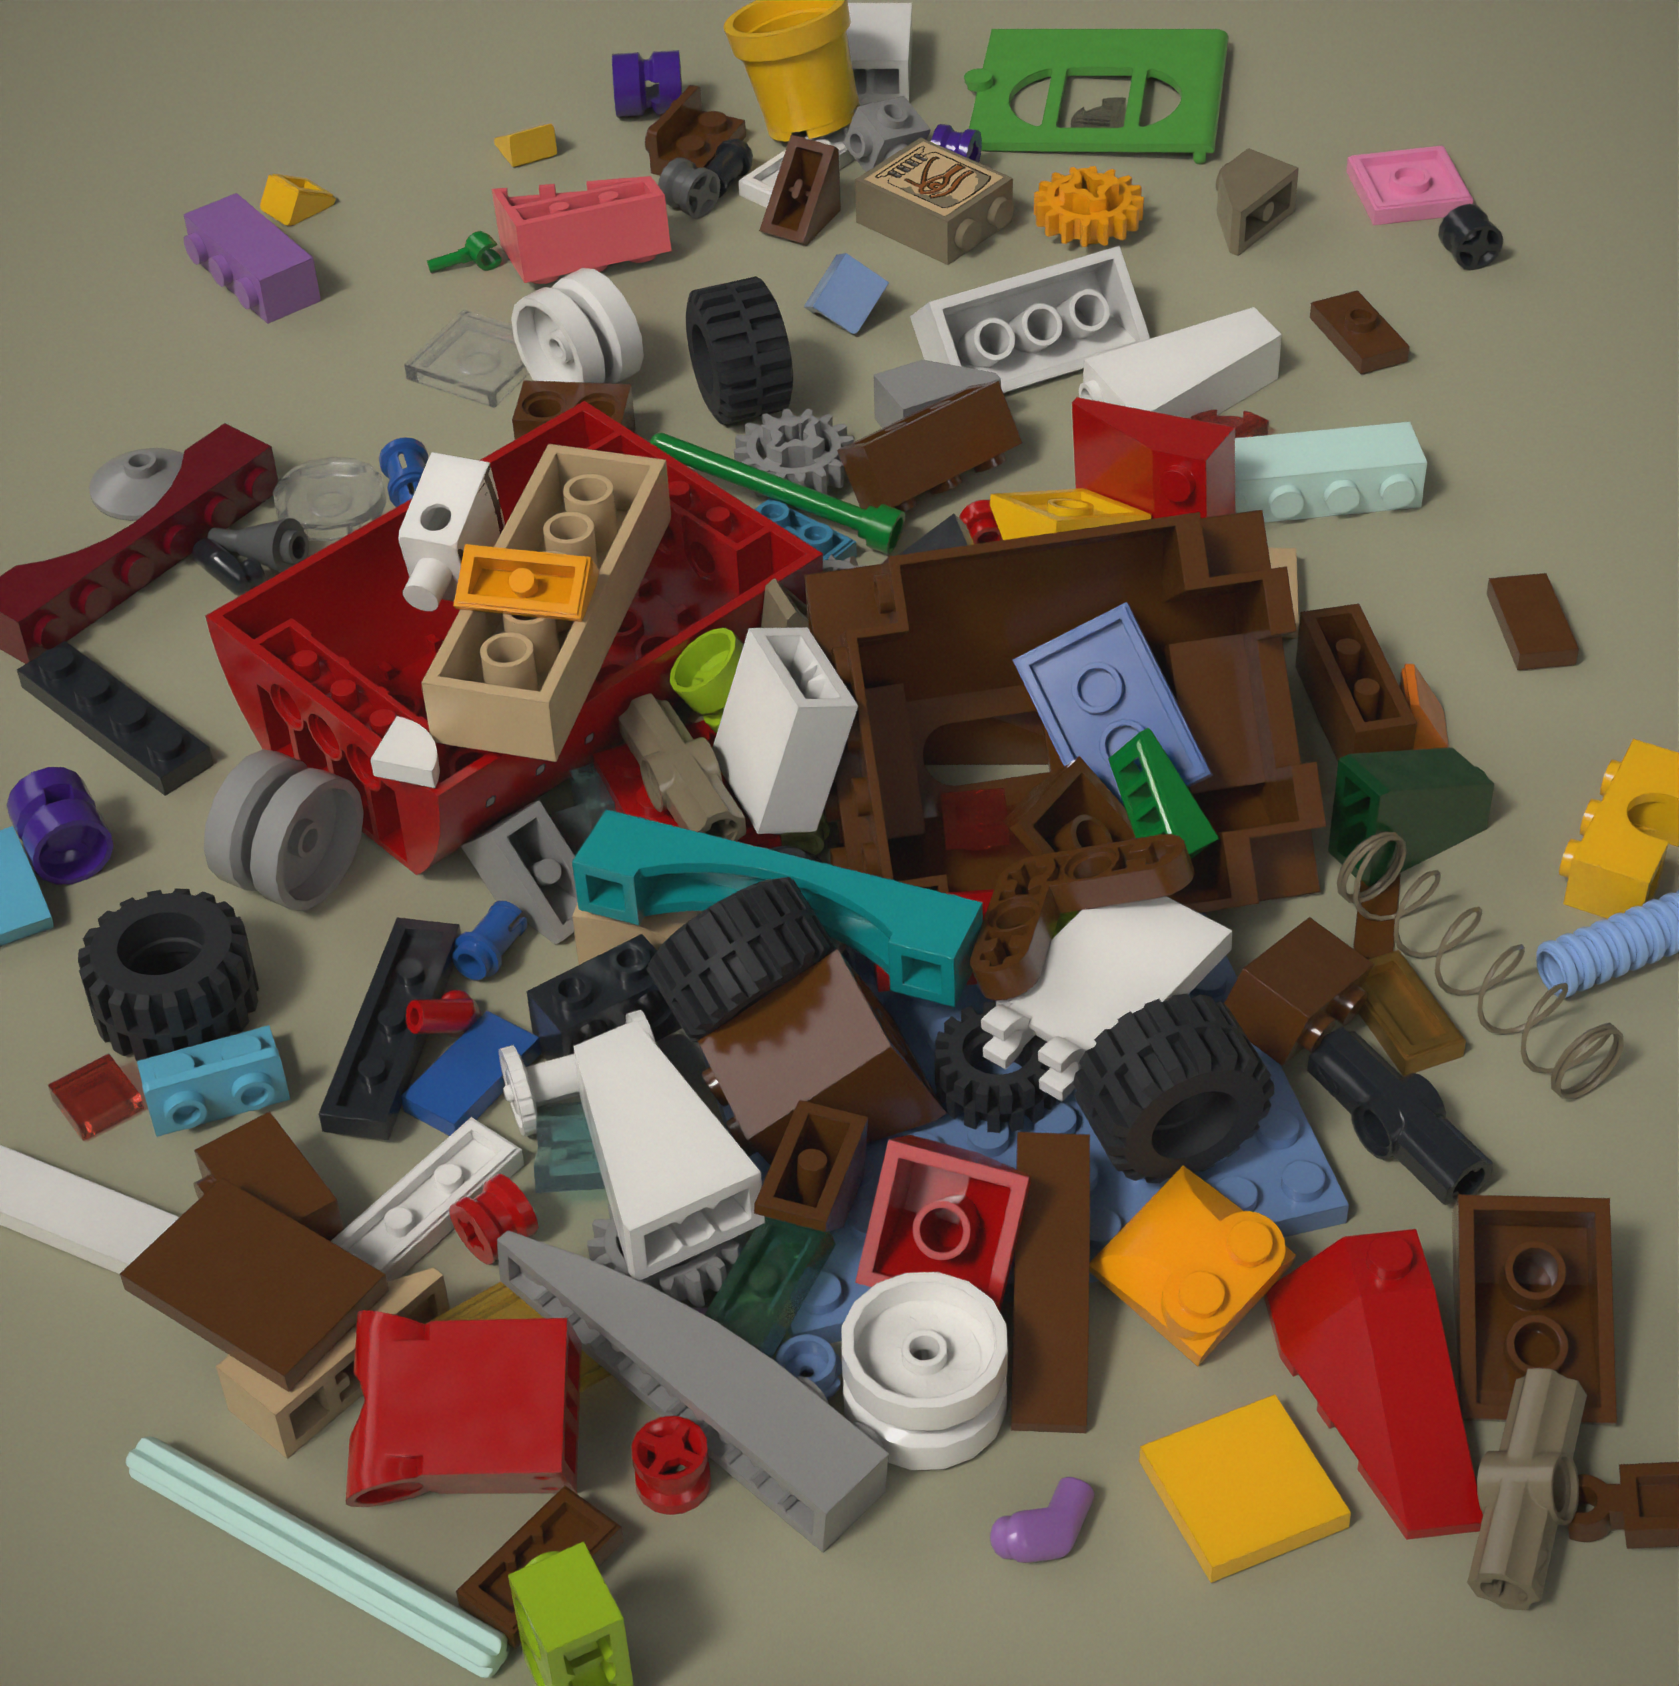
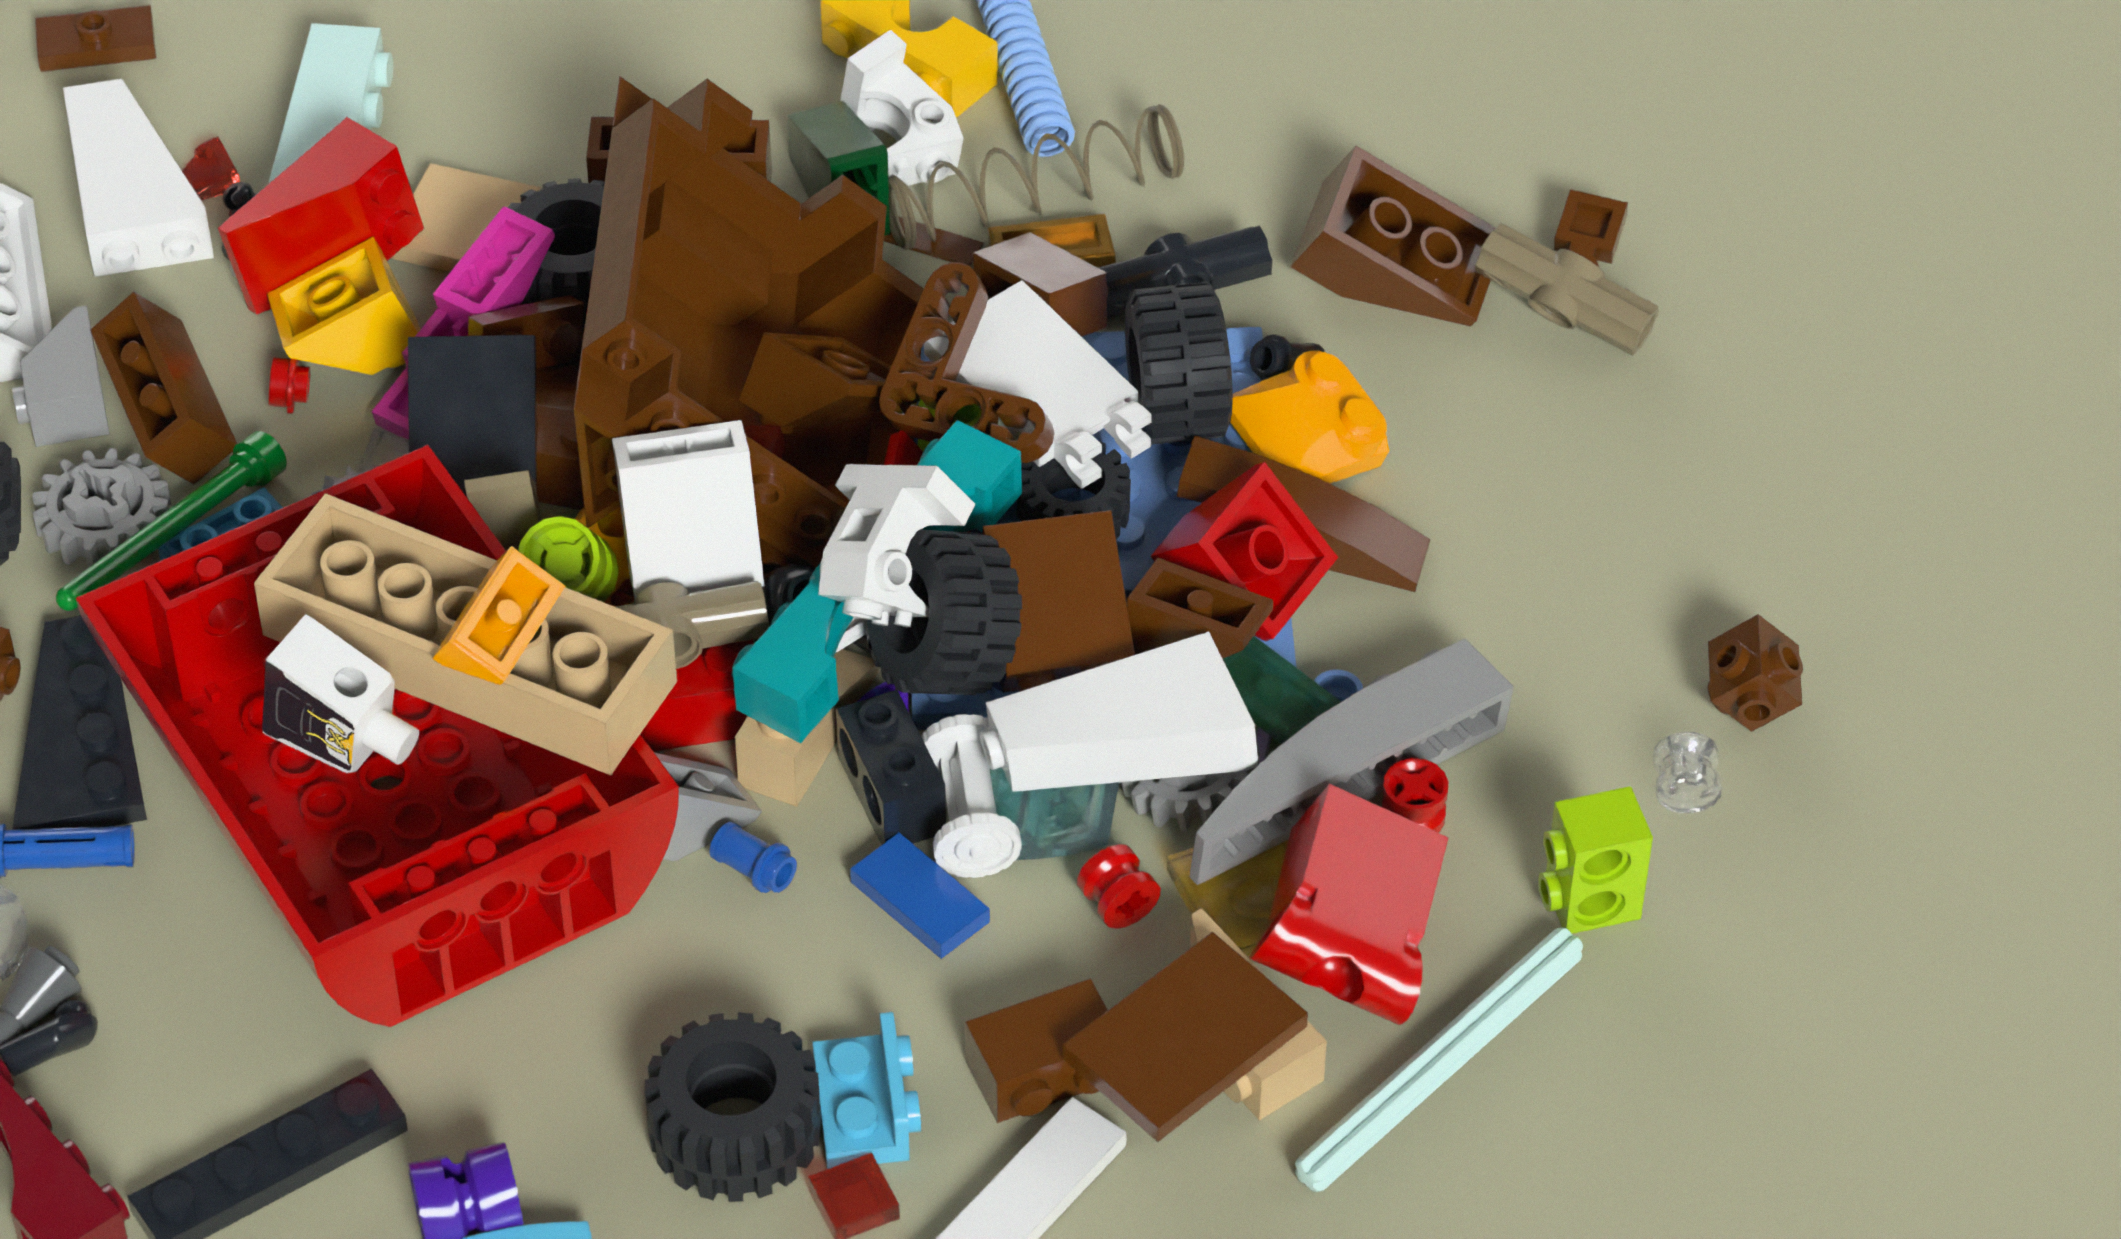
camera: 80 degrees left, 5 degrees up
(283, 829) = (577, 980): light grey wheel -> none
(381, 1048) = (846, 943): black plate -> none
(407, 754) = (623, 793): white tile -> none
(416, 1209) = (1061, 936): white tile -> none
(448, 1015) = (852, 892): red arm -> none
(555, 1527) = (1495, 900): reddish brown plate -> none
(790, 844) = (874, 534): none -> white tile
(926, 1368) = (1377, 602): white wheel -> none
(1047, 1531) = (1526, 574): medium lavender arm -> none
(1102, 690) = (711, 298): tile -> none
(1157, 796) = (860, 321): green slope -> none
(1243, 1488) = (1511, 458): yellow tile -> none
(1295, 1223) = (1277, 355): none -> black pin
(1376, 1358) = (1429, 345): red wedge -> none
(1518, 825) = (902, 107): none -> white tile
(1532, 621) = (596, 36): reddish brown tile -> none

